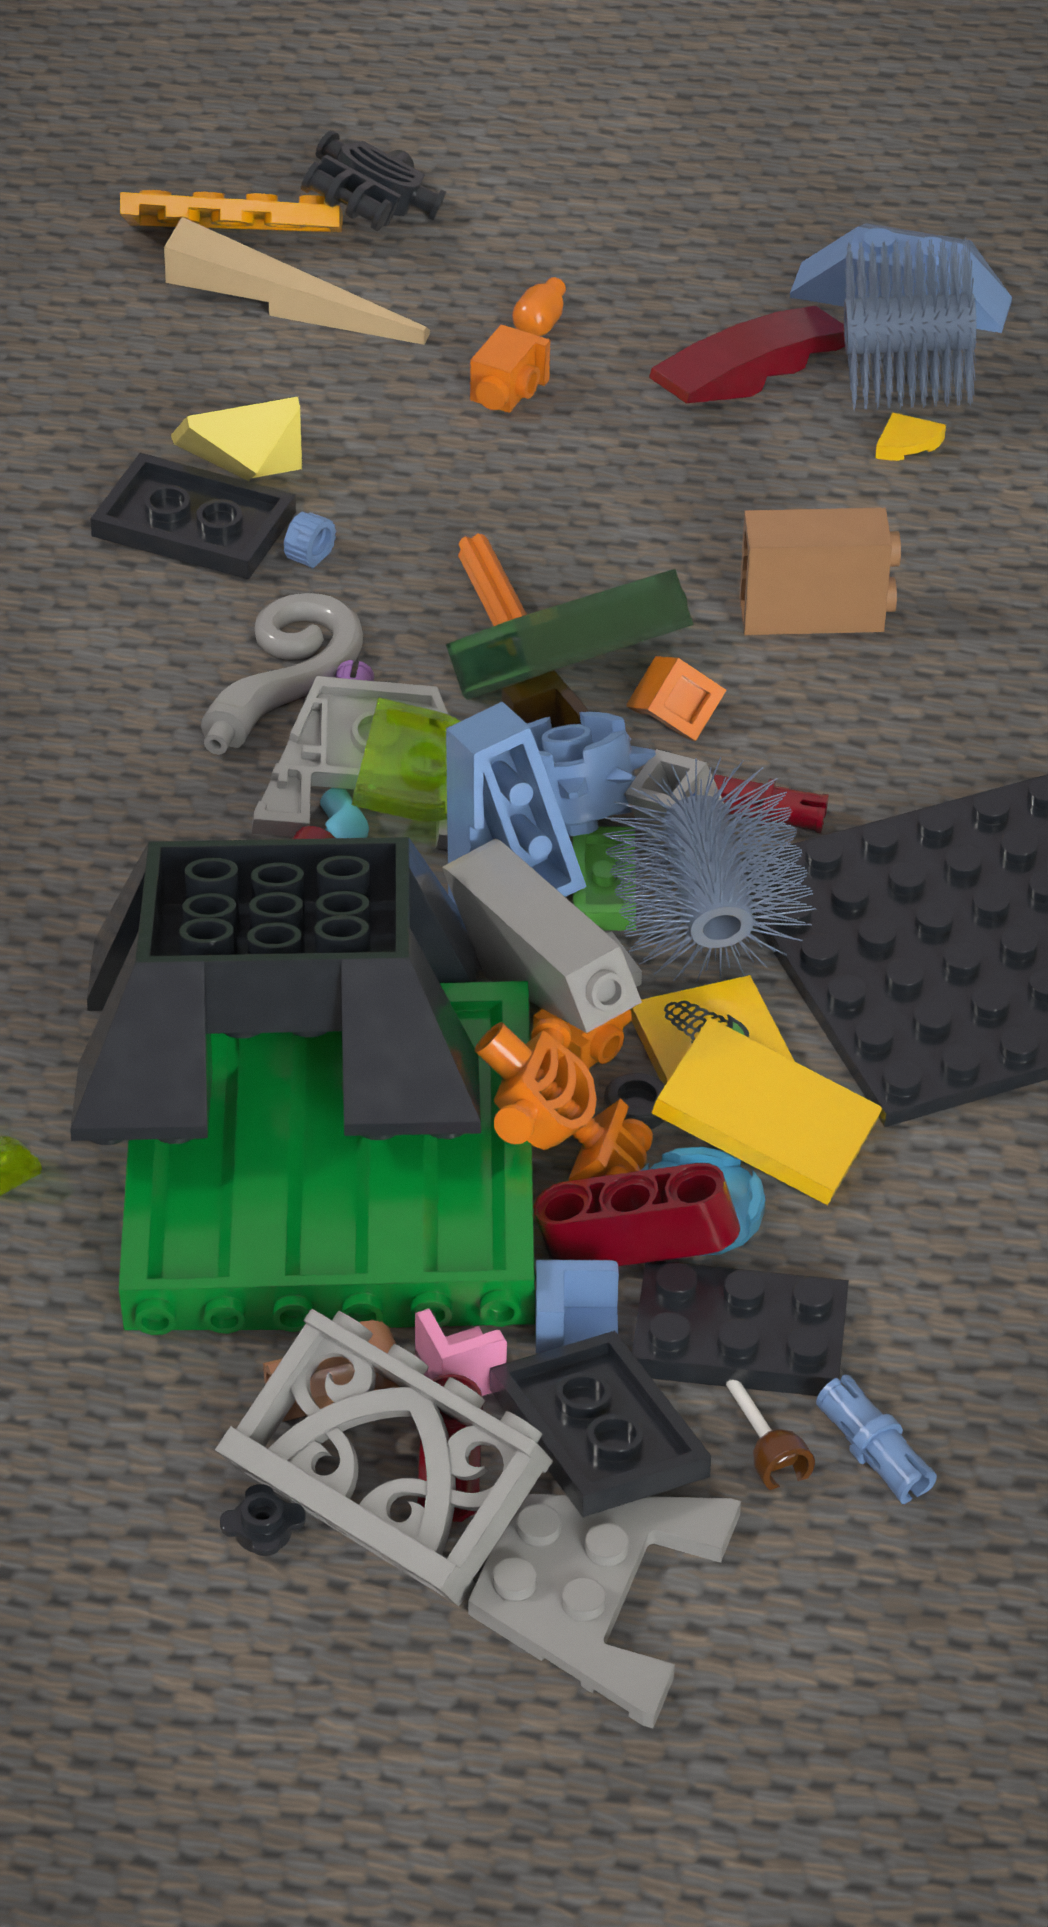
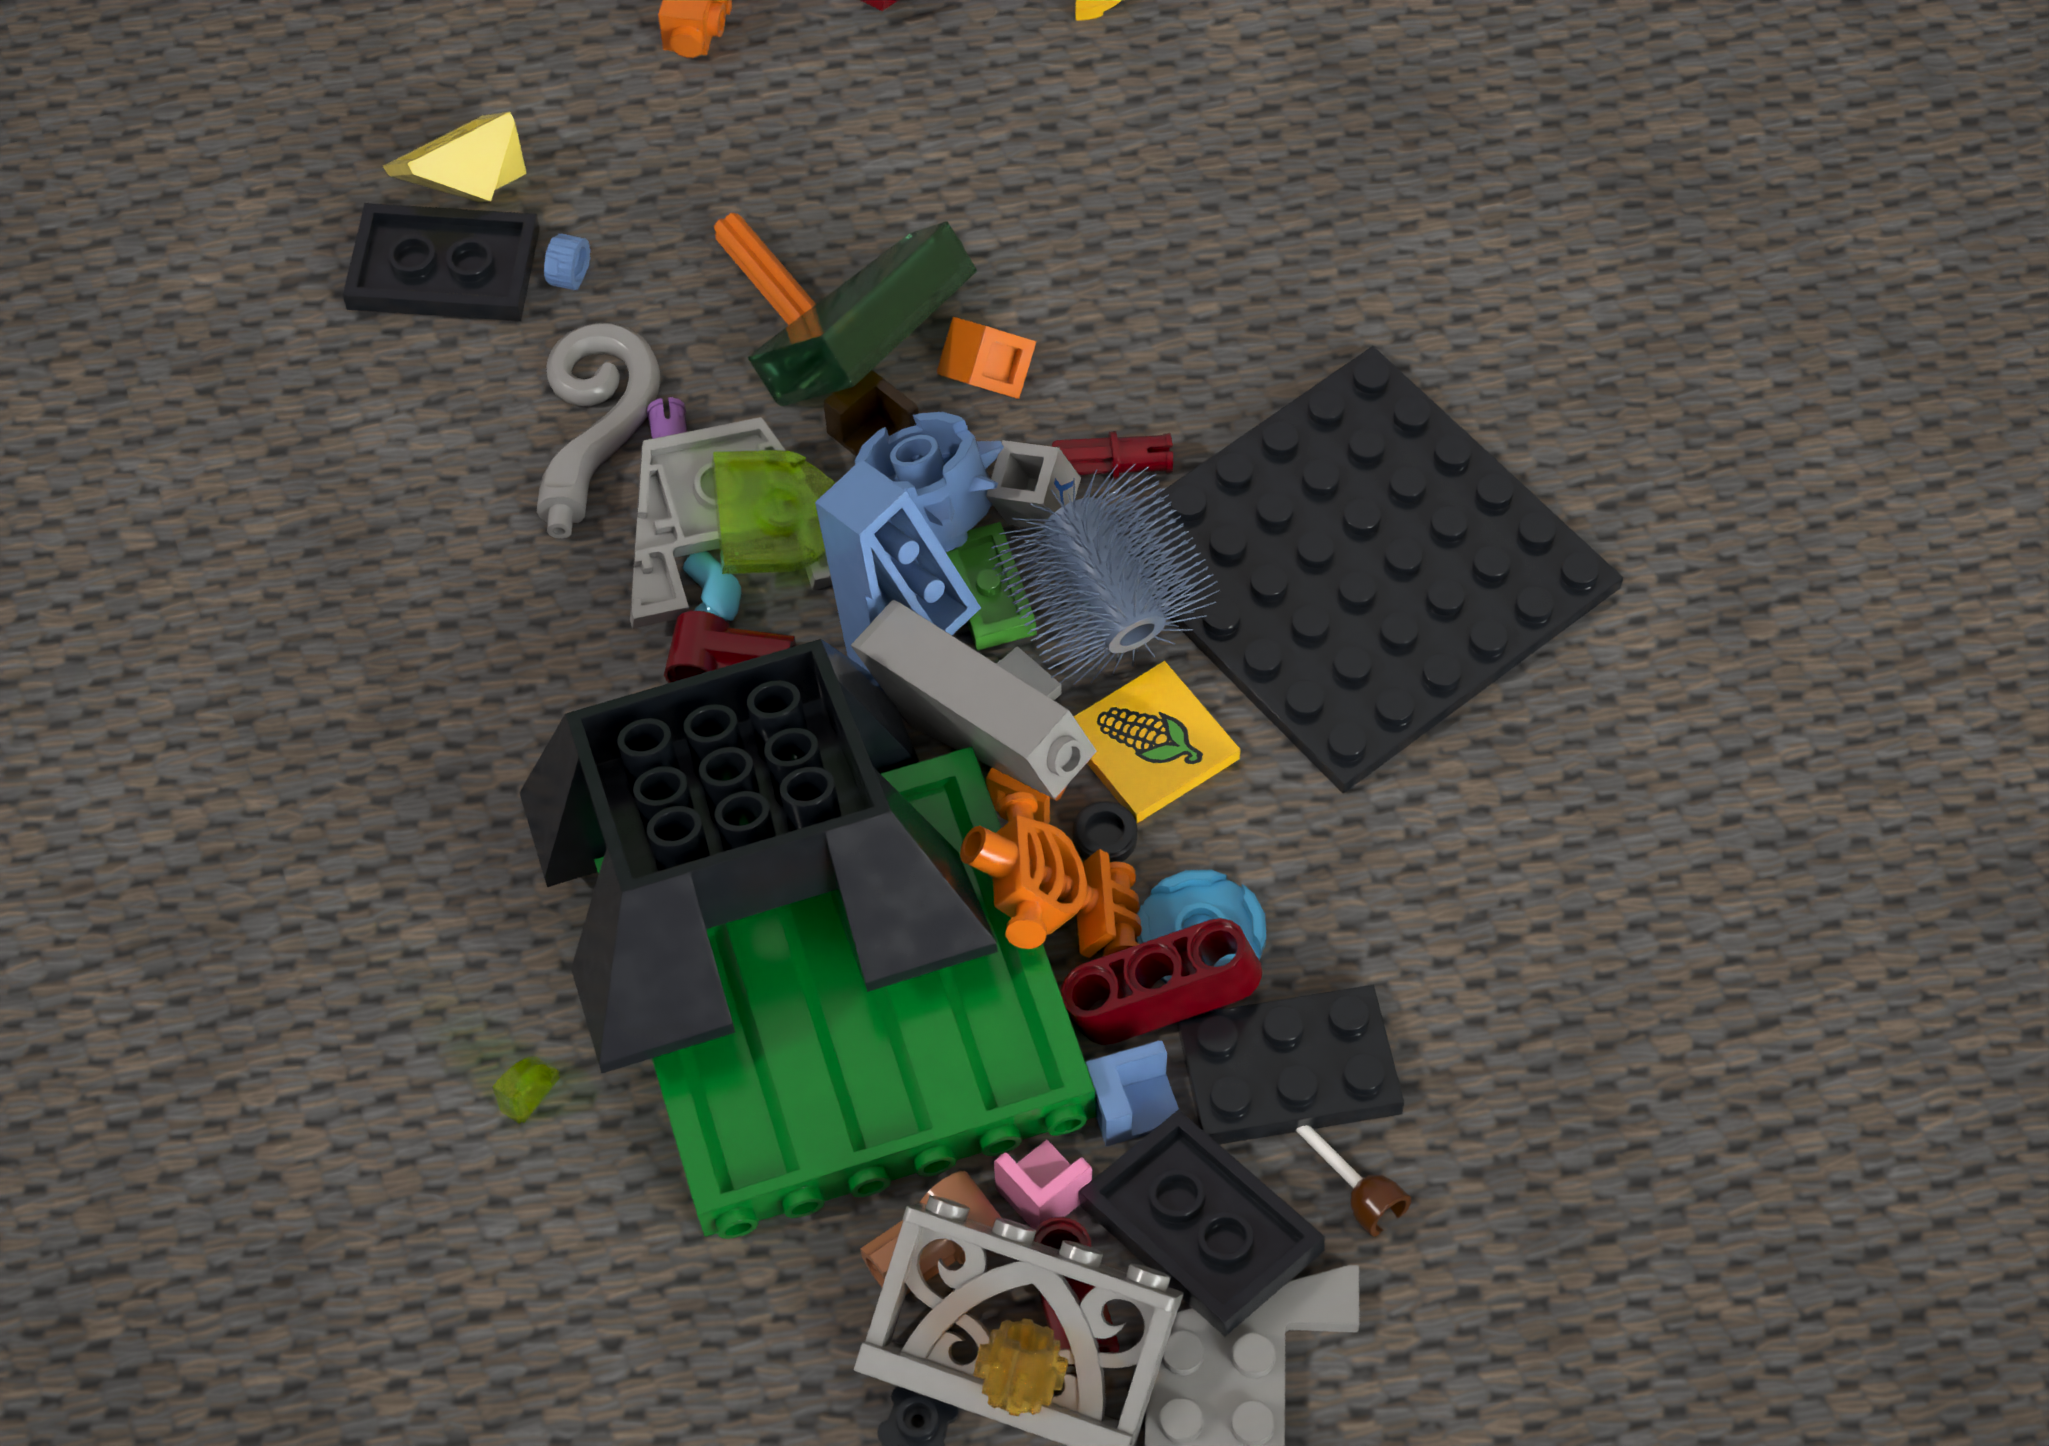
camera: 15 degrees left, 15 degrees up
(369, 1472) = (1020, 1367): none -> clear yellow gear
(767, 1110) = (1236, 816): yellow tile -> none
(817, 571) = (1078, 182): medium nougat brick -> none
(875, 1438) = (1458, 1157): medium blue pin -> none

